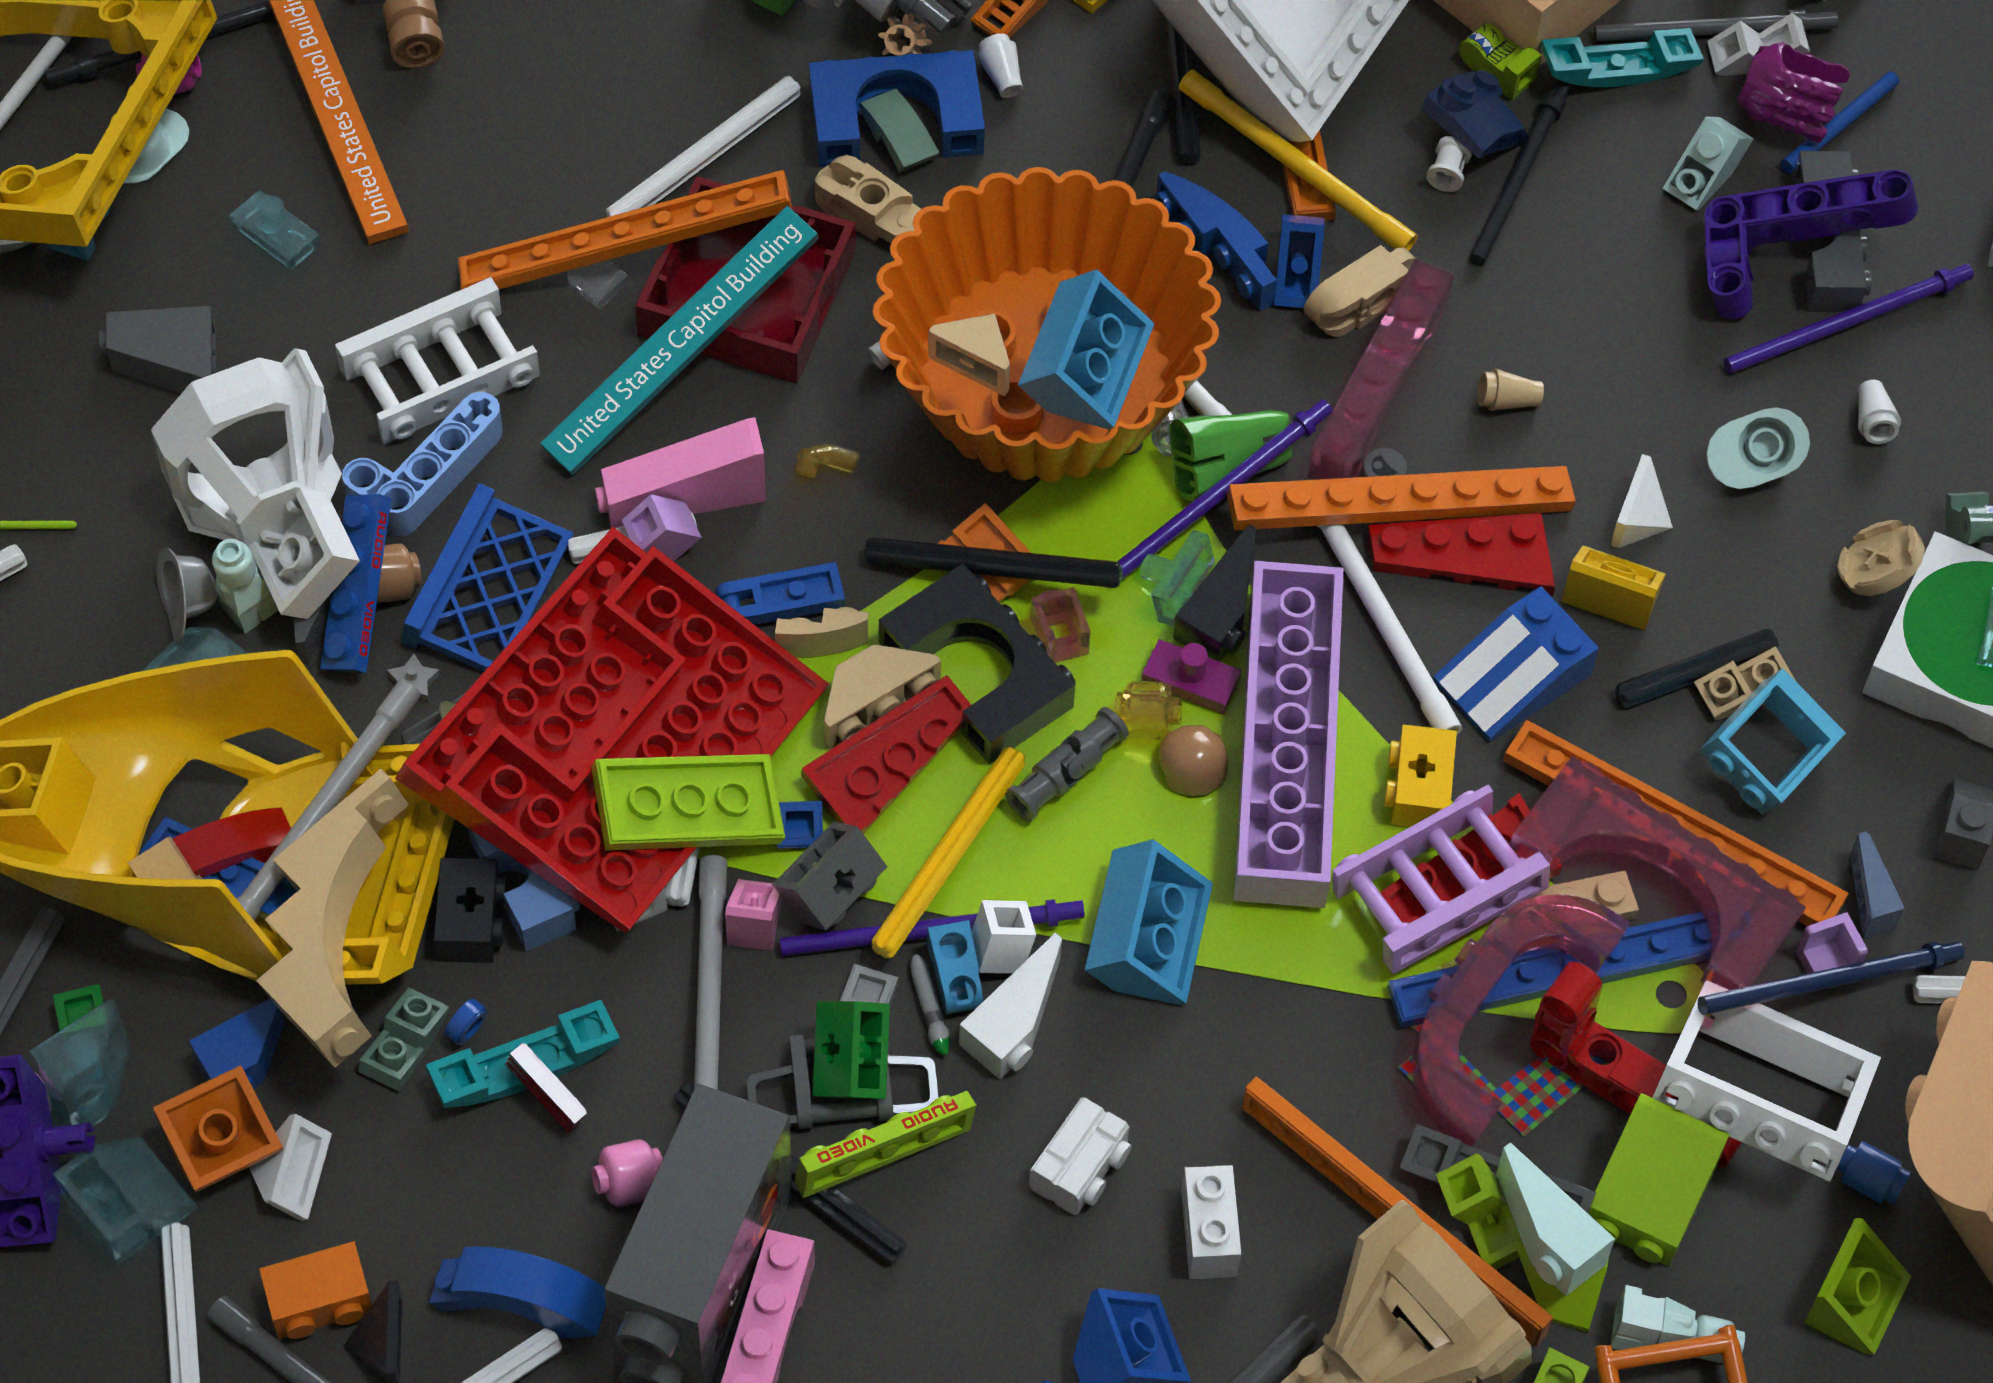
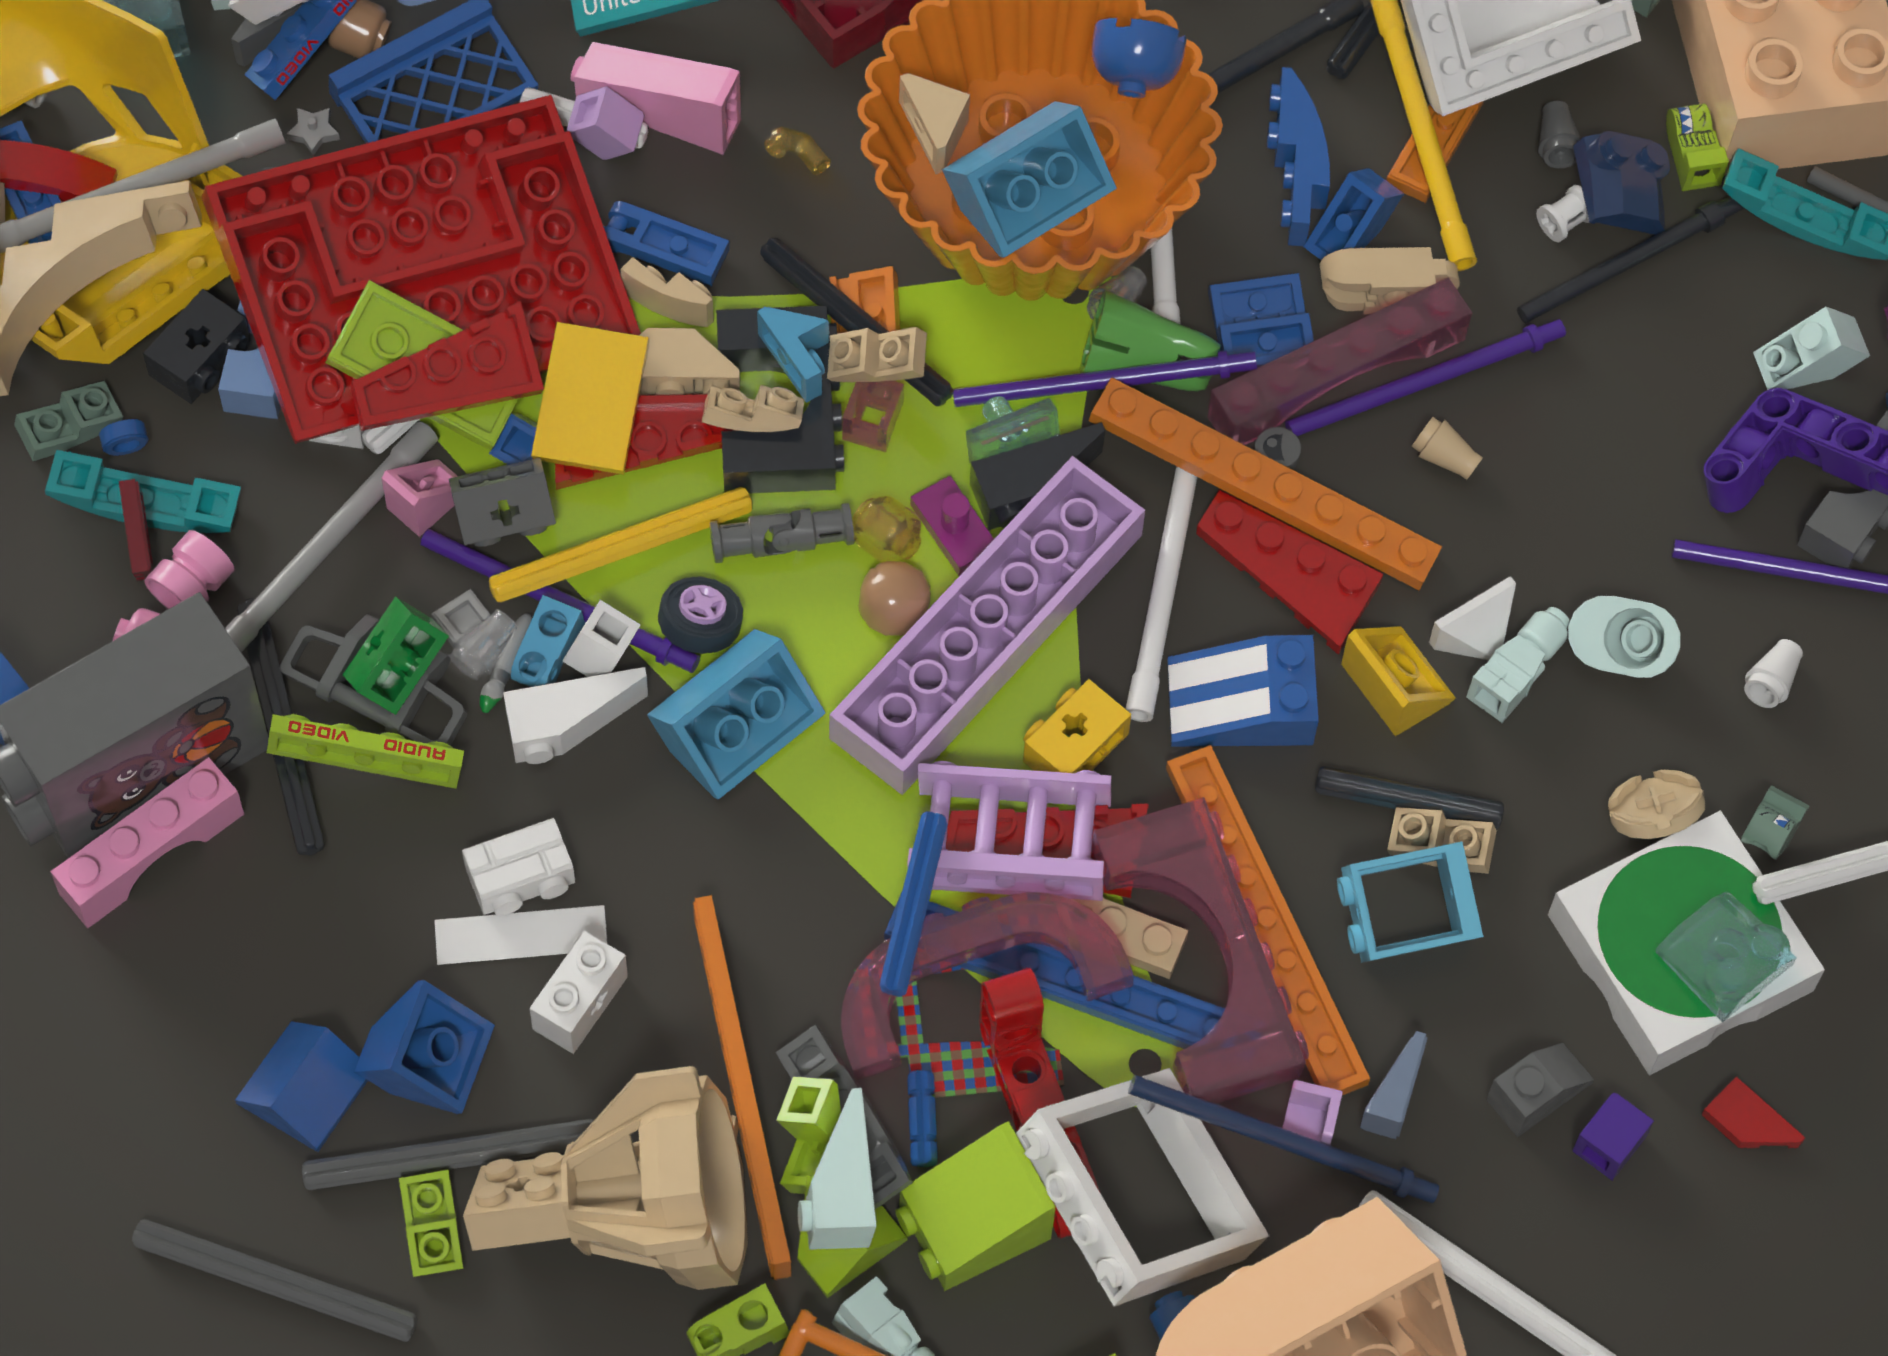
camera: 35 degrees right, 5 degrees up
(618, 1097) = (195, 568): none -> bright pink wheel
(723, 790) = (465, 371): none -> red wing
(837, 749) = (590, 398): none -> yellow tile
(906, 999) = (482, 645): none -> clear cone
(964, 607) = (793, 344): none -> dark azure slope
(984, 675) = (770, 411): none -> tan slope
(1042, 576) = (876, 357): none -> tan slope
(1058, 867) = (700, 615): none -> black wheel
(1094, 210) = (1137, 55): none -> blue cylinder
(1116, 1212) = (516, 934): none -> white sticker
(1291, 375) = (1261, 317): none -> blue slope
(1396, 110) = (1558, 135): none -> dark grey cone
(1427, 976) = (913, 904): none -> blue axle
(1499, 273) = (1530, 339): none -> dark purple bar
(1547, 1144) = (922, 1118): none -> blue axle
(1695, 518) = (1518, 663): none -> light aqua piece

